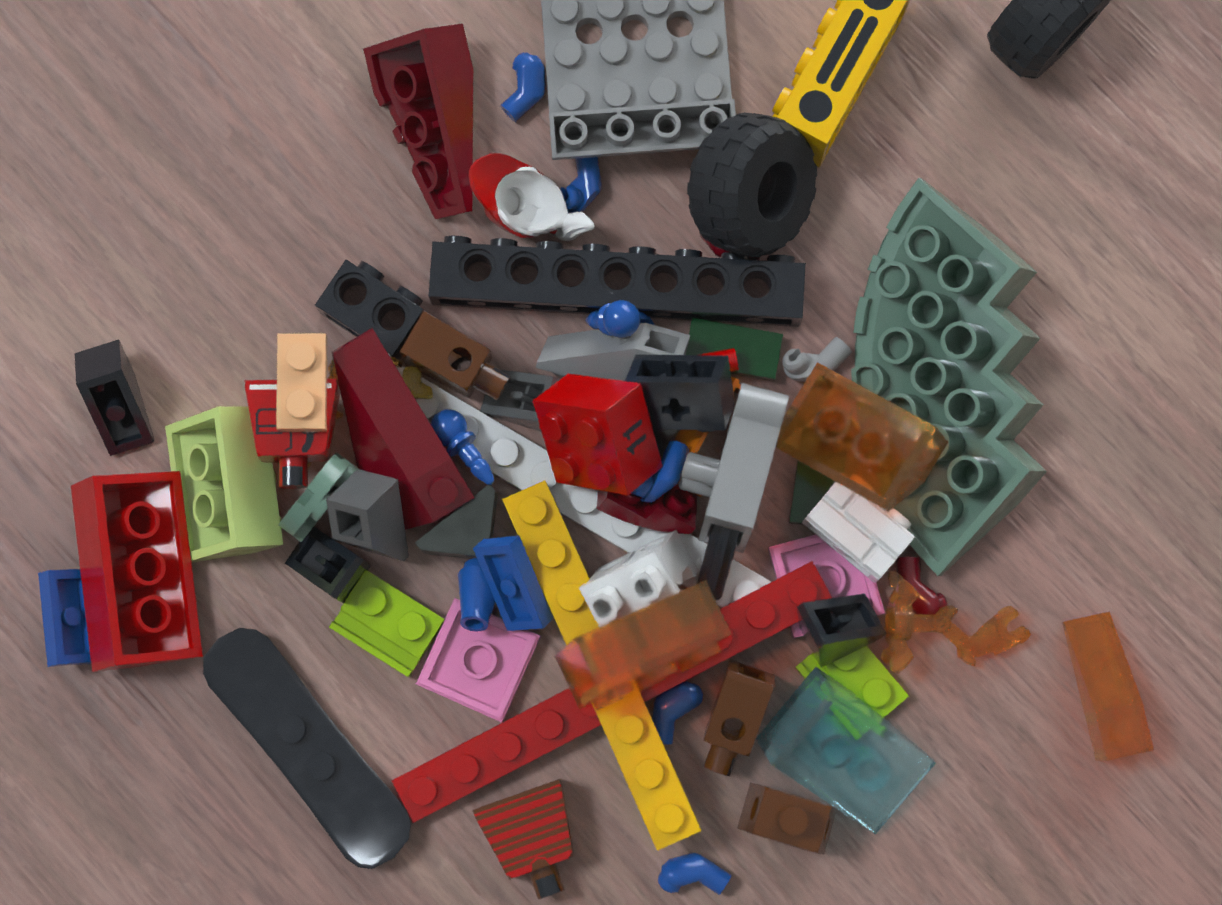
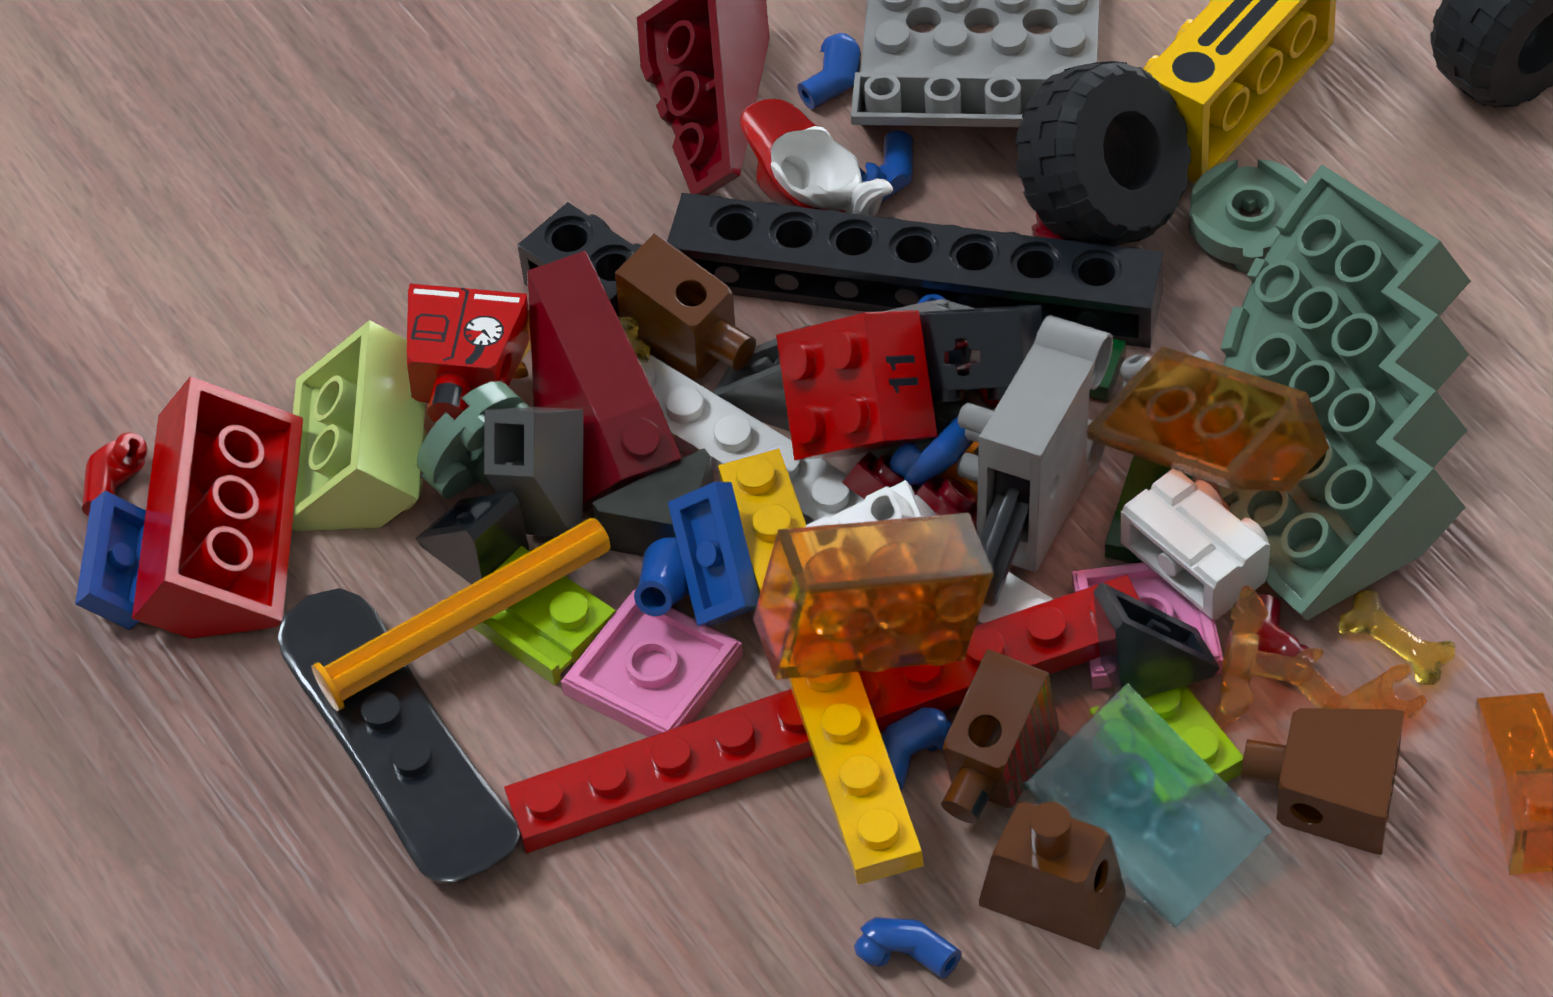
camera: 10 degrees right, 30 degrees down
(41, 530) = (113, 466): none -> red arm
(113, 397) = (238, 332): black slope -> none
(301, 382) = (481, 287): light nougat plate -> none
(335, 646) = (460, 612): none -> light orange axle
(453, 433) = (679, 404): blue bar -> none
(530, 835) = (682, 862): torso -> none
(615, 319) = (904, 279): blue bar -> none
(857, 173) = (1225, 189): none -> sand green plate
(973, 705) = (1333, 773): none -> reddish brown torso
(1023, 588) = (1422, 655): none -> clear yellow piece

